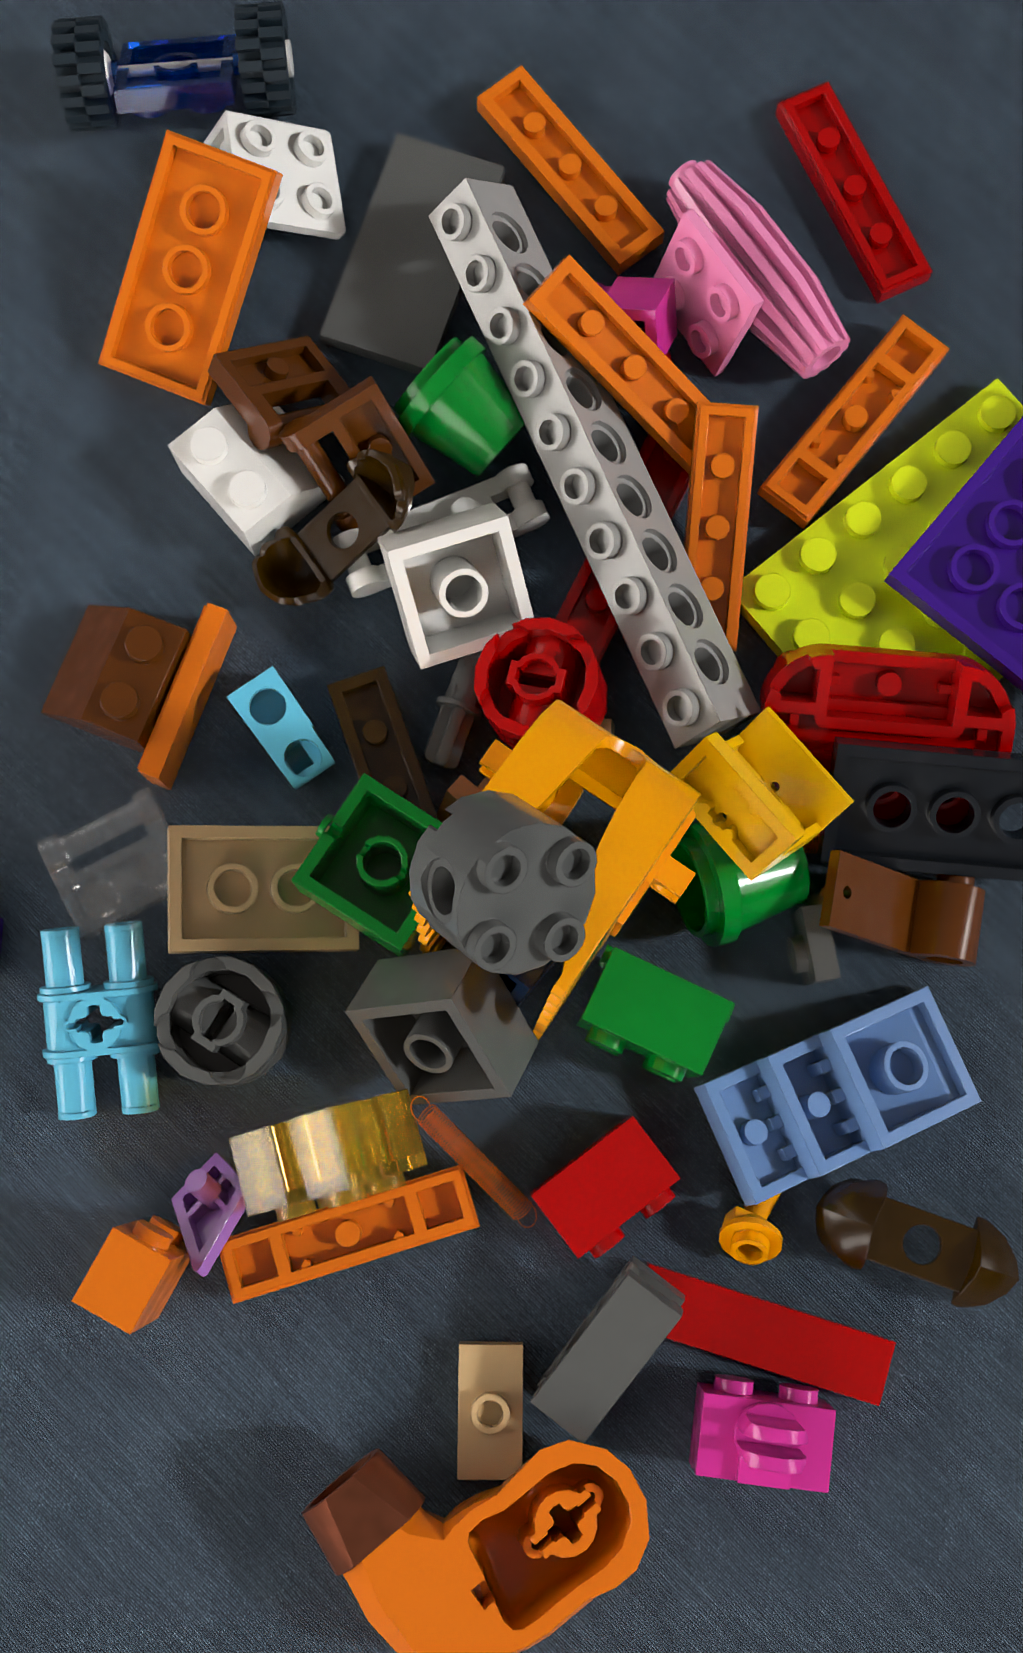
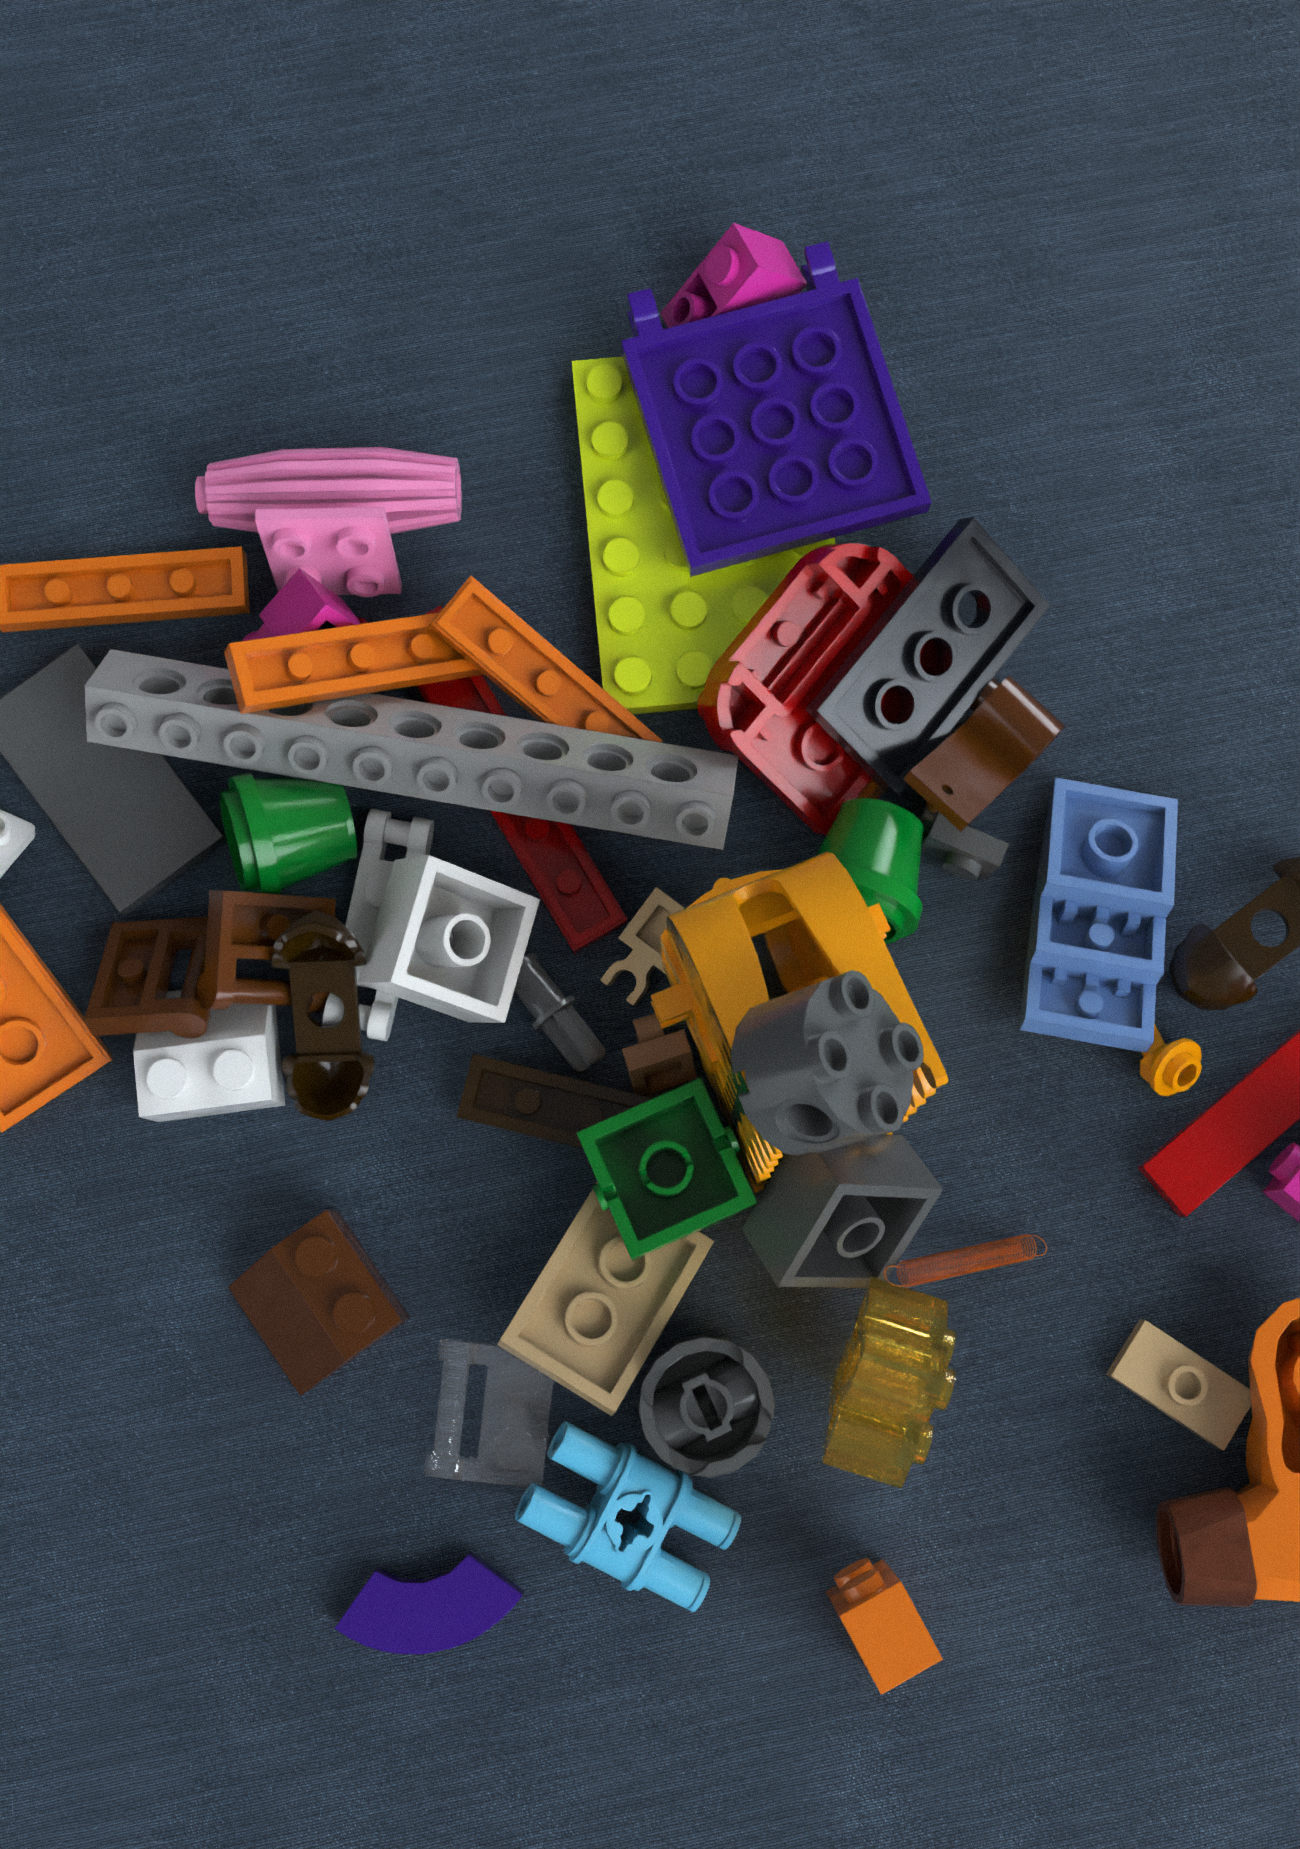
camera: 60 degrees left, 0 degrees up
(187, 696) = (380, 1249): orange tile -> none
(208, 1211) = (862, 1523): medium lavender piece -> none
(281, 727) = (469, 1182): medium azure leg -> none
(348, 1234) = (939, 1492): orange plate -> none
(532, 669) = (594, 928): red brick -> none
(606, 1188) = (1057, 1160): red brick -> none
(608, 1349) = (1197, 1247): dark grey piece -> none
(653, 1016) = (968, 1010): green brick -> none
(739, 780) = (842, 811): yellow panel -> none
(853, 192) = (315, 363): red tile -> none
(853, 421) = (527, 505): orange plate -> none

